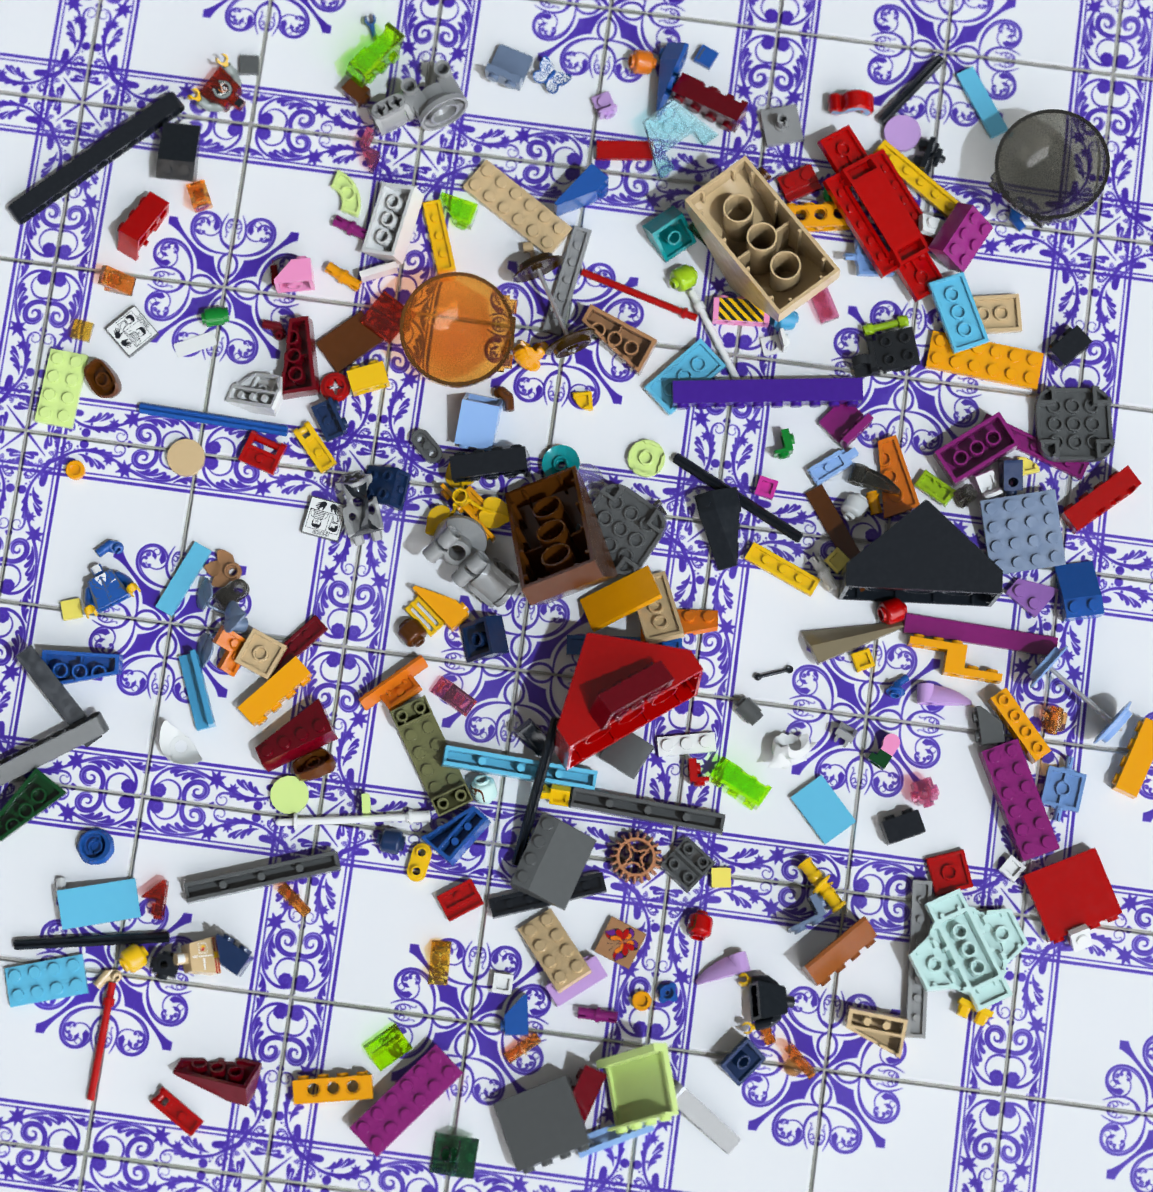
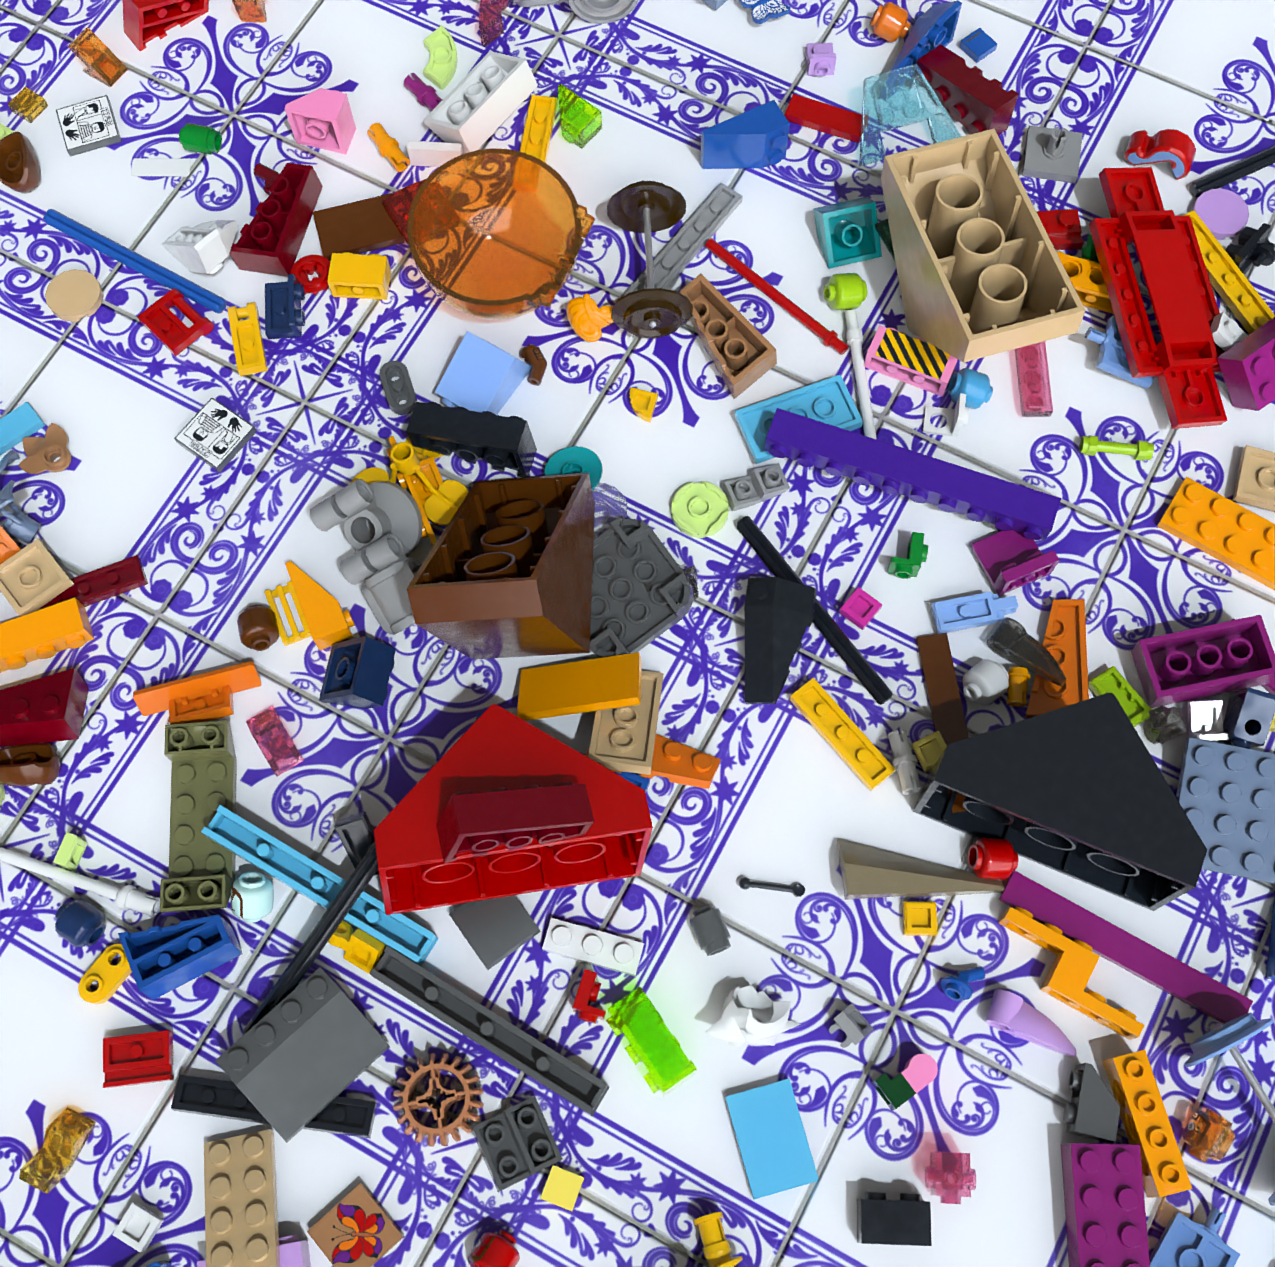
camera: 25 degrees right, 10 degrees down
(230, 593) = (36, 486): clear smoke piece -> none
(356, 486) = (263, 451): light grey hips -> none
(388, 486) = (319, 420): dark blue bracket -> none
(517, 208) = (653, 137): tan plate -> none
(675, 431) = (755, 488): none -> light grey slope
(889, 352) = (1111, 482): black plate -> none
(958, 312) = (1234, 462): medium azure tile -> none
(1031, 595) = (1225, 917): medium lavender wing -> none

